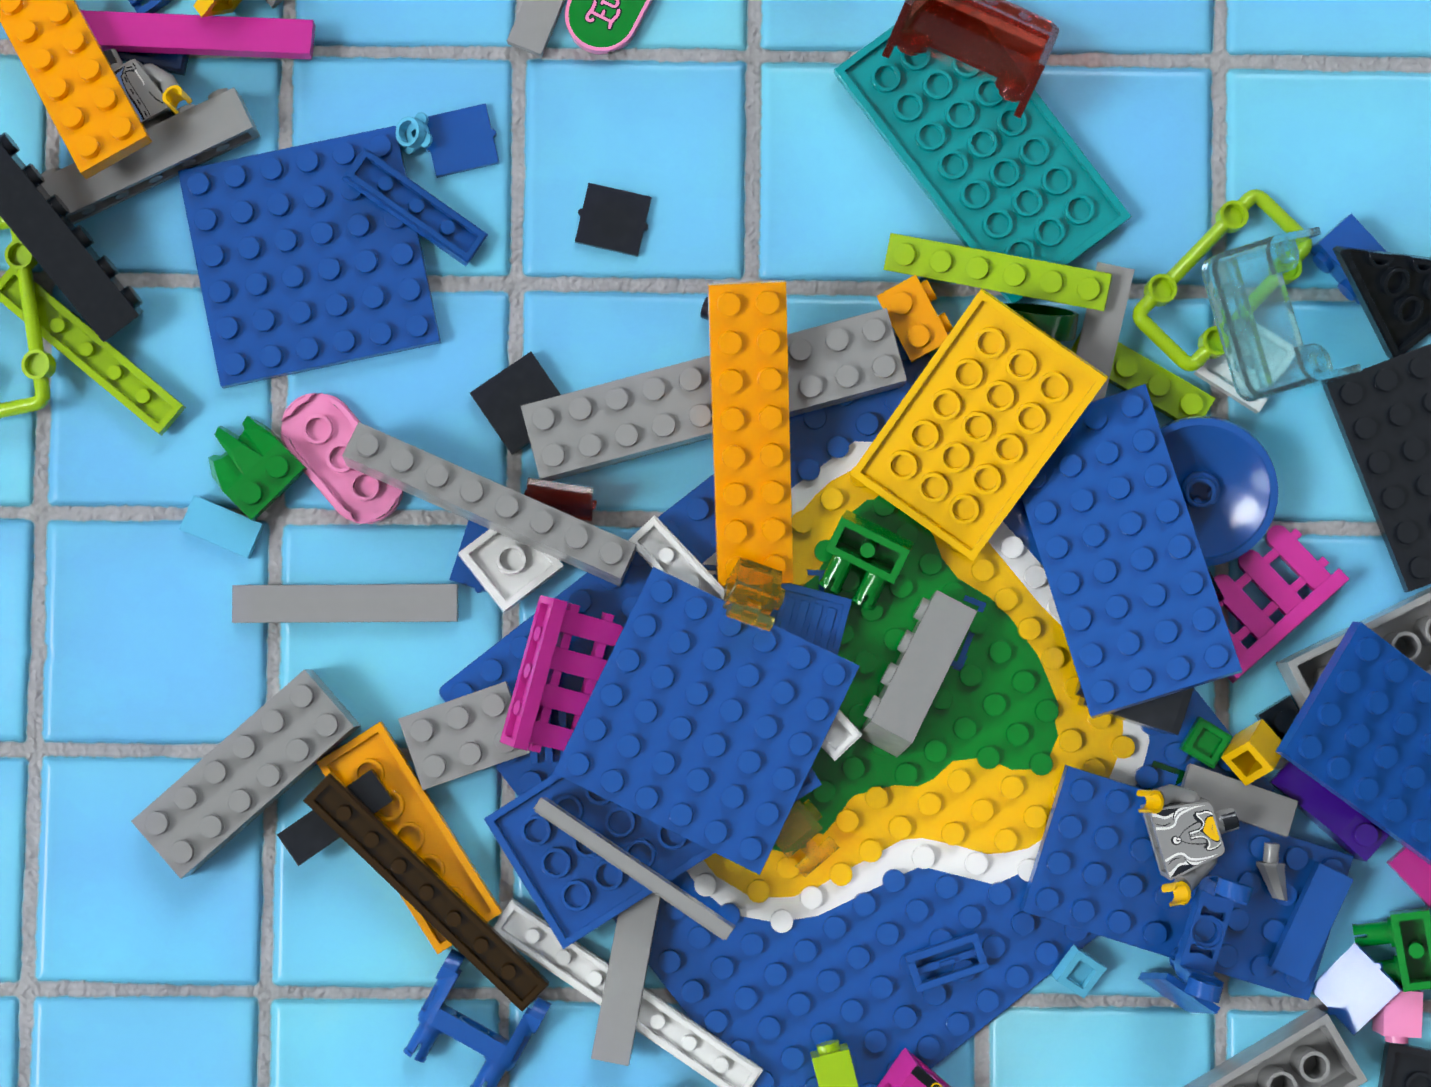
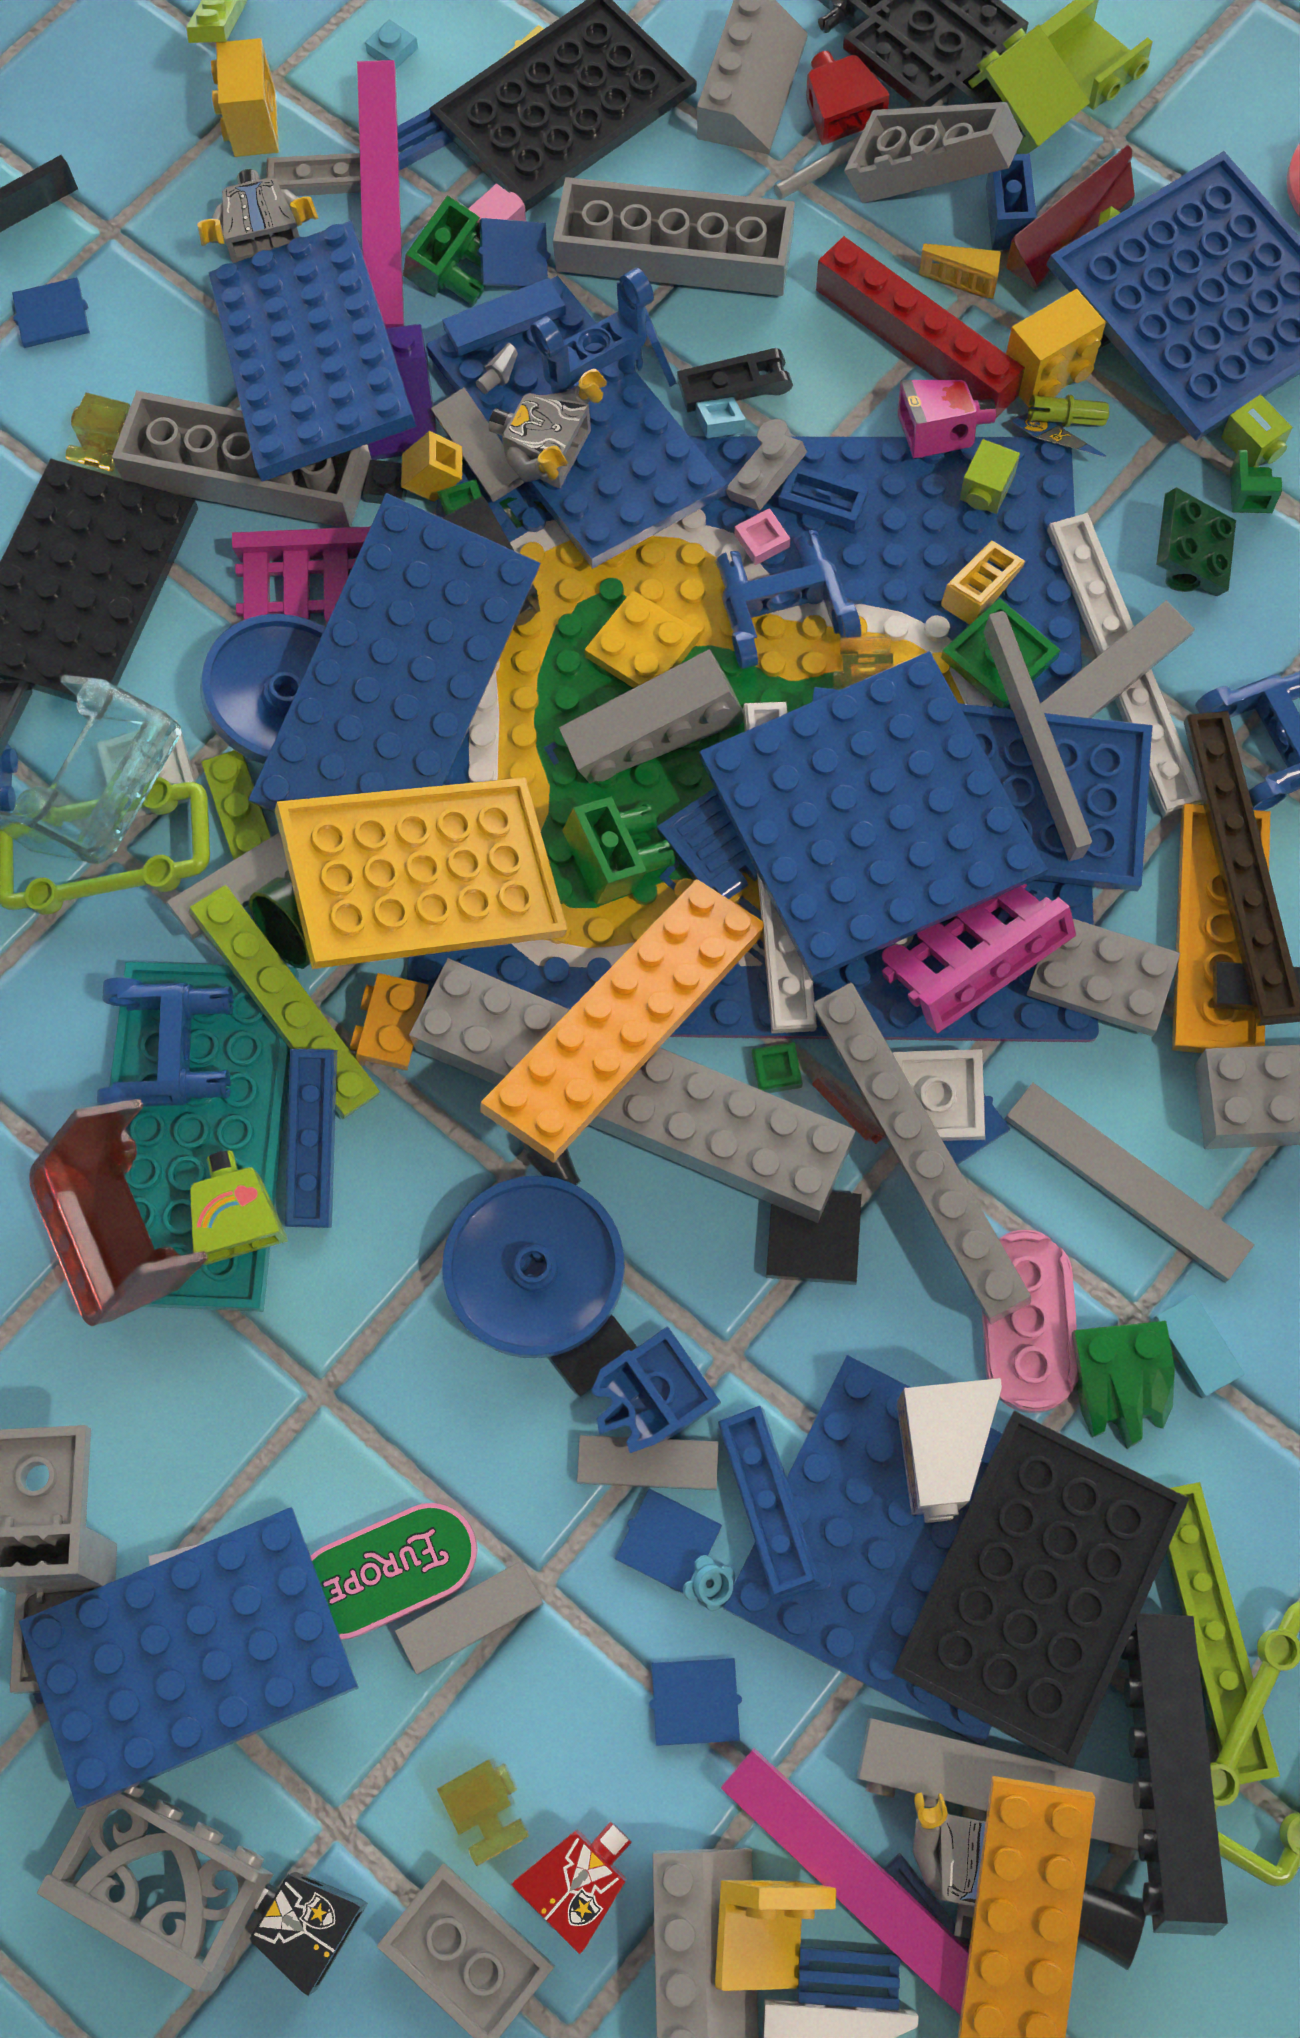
camera: 135 degrees left, 15 degrees down
(30, 128) = (1111, 1924): none -> black plant
(208, 286) = (1041, 1588): none -> black plate
(327, 320) = (944, 1442): none -> white slope
(370, 61) = (695, 1702): none -> blue piece
(511, 175) = (662, 1465): none -> light grey tile
(541, 217) = (653, 1392): none -> blue plate
(635, 498) = (777, 1068): none -> green tile
(679, 230) = (533, 1266): none -> blue dish
(703, 948) = (974, 662): none -> green plate
(753, 593) = (742, 881): clear yellow brick -> none
(775, 950) = (967, 601): none -> yellow slope
(894, 884) = (781, 591): none -> blue connector
(898, 200) = (311, 1138): none -> blue tile
(902, 108) = (232, 1211): none -> lime torso
(962, 888) = (762, 536): none -> bright pink plate
(980, 734) = (641, 641): none -> yellow plate
(1006, 953) = (767, 466): none -> light grey hinge
(1018, 160) = (177, 1007): none -> blue connector
(1096, 1015) = (735, 378): none -> black plate

